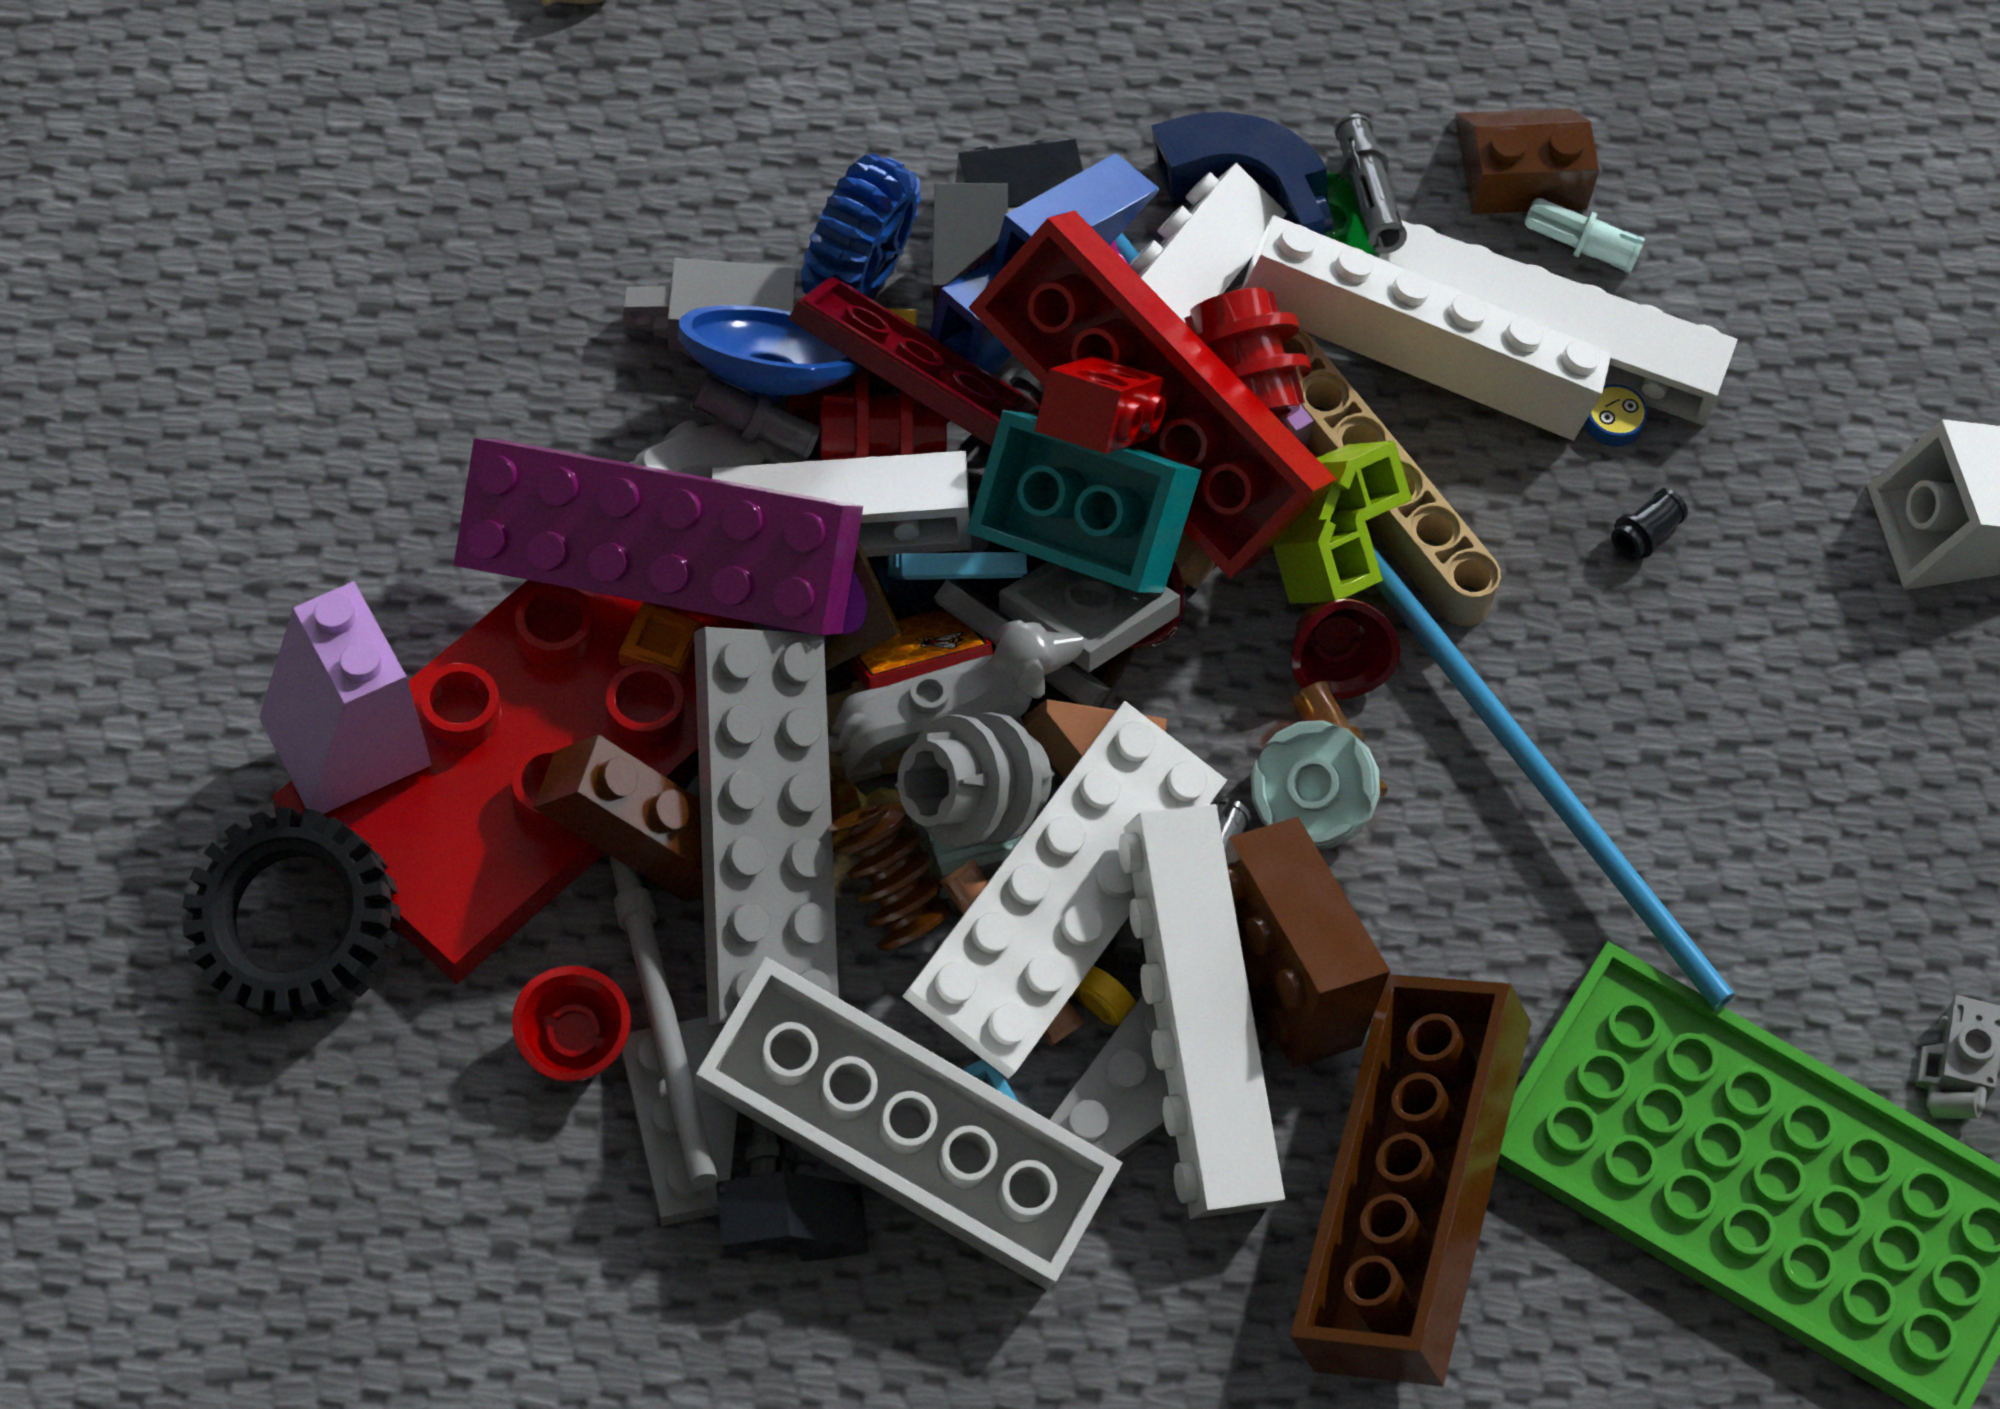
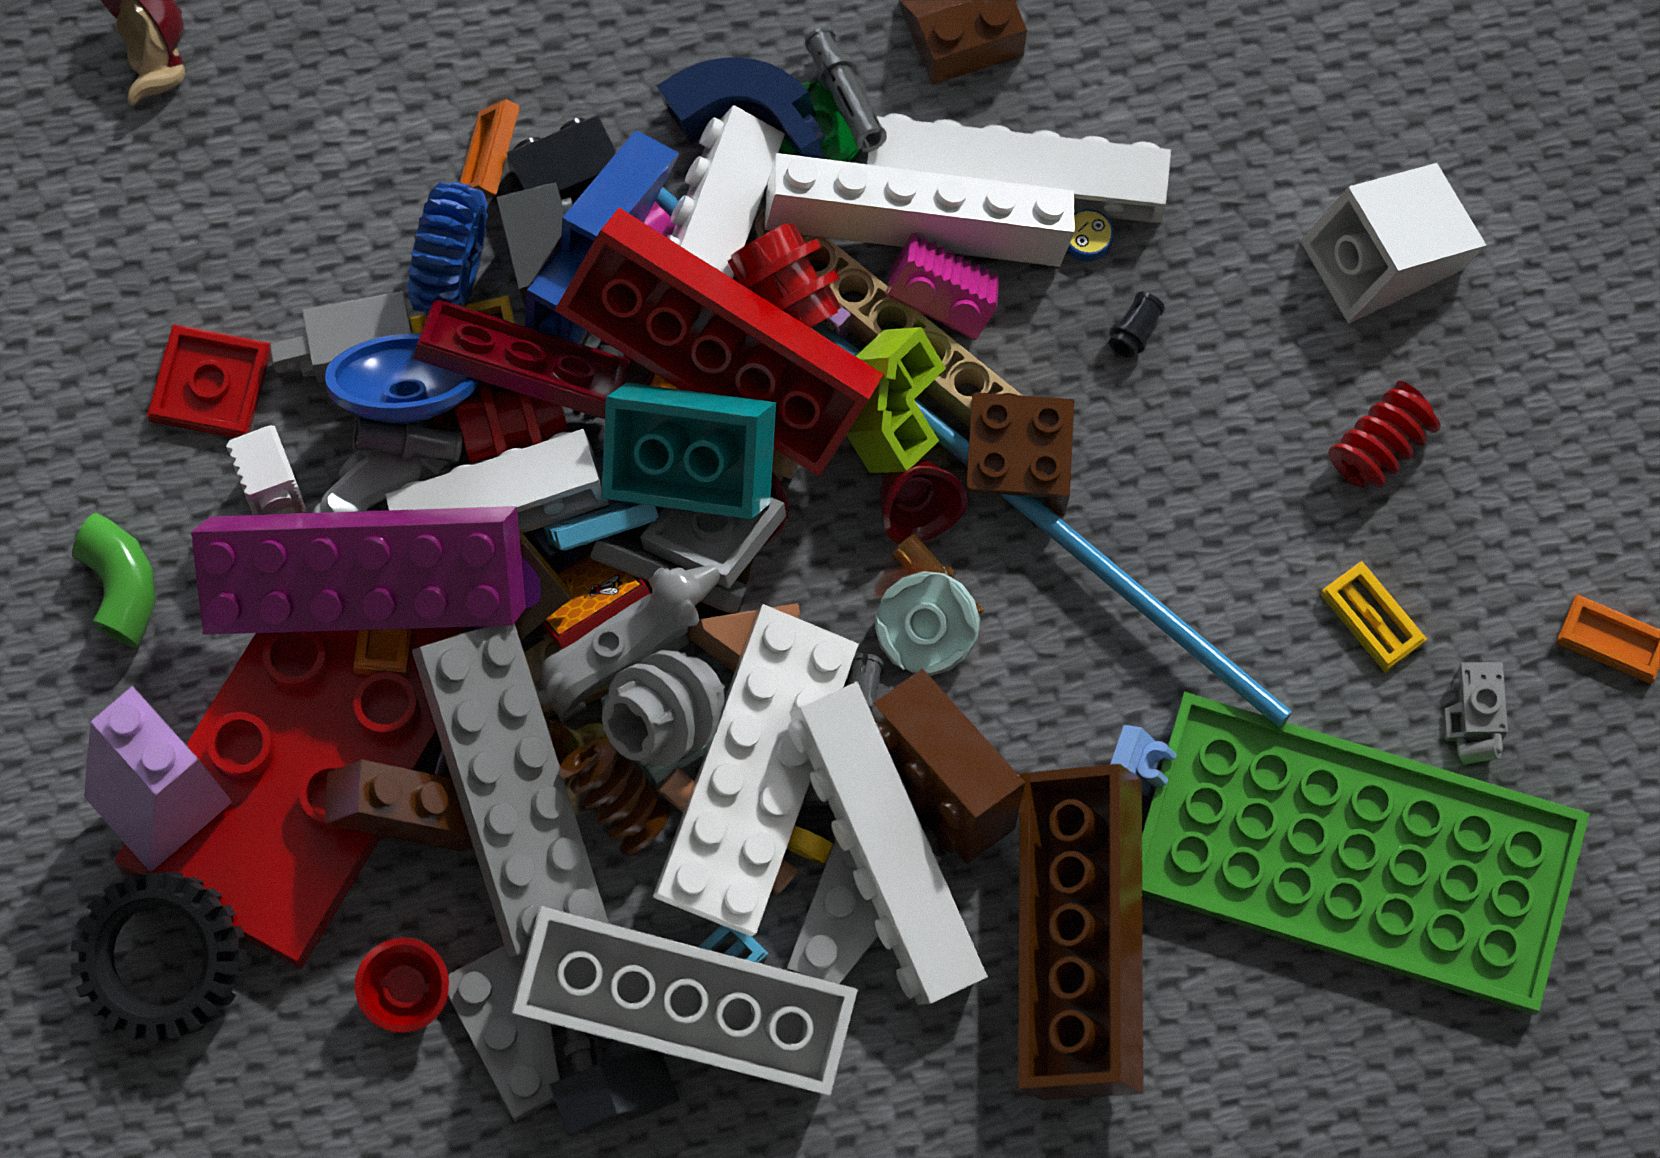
camera: 10 degrees left, 10 degrees up
(381, 491) = (125, 579): none -> bright green cylinder
(544, 317) = (209, 382): none -> red tile
(578, 407) = (265, 473): none -> white brick
(637, 916) = (427, 876): light grey bar -> none
(942, 142) = (490, 147): none -> orange tile
(1101, 404) = (683, 375): red brick -> none
(1431, 419) = (943, 286): none -> dark pink brick
(1479, 615) = (1021, 447): none -> reddish brown bracket
(1542, 1000) = (1141, 756): none -> light blue tile
(1585, 234) = (1027, 82): light aqua axle -> none
(1838, 931) = (1359, 629): none -> yellow tile
(1919, 718) = (1383, 436): none -> red piece

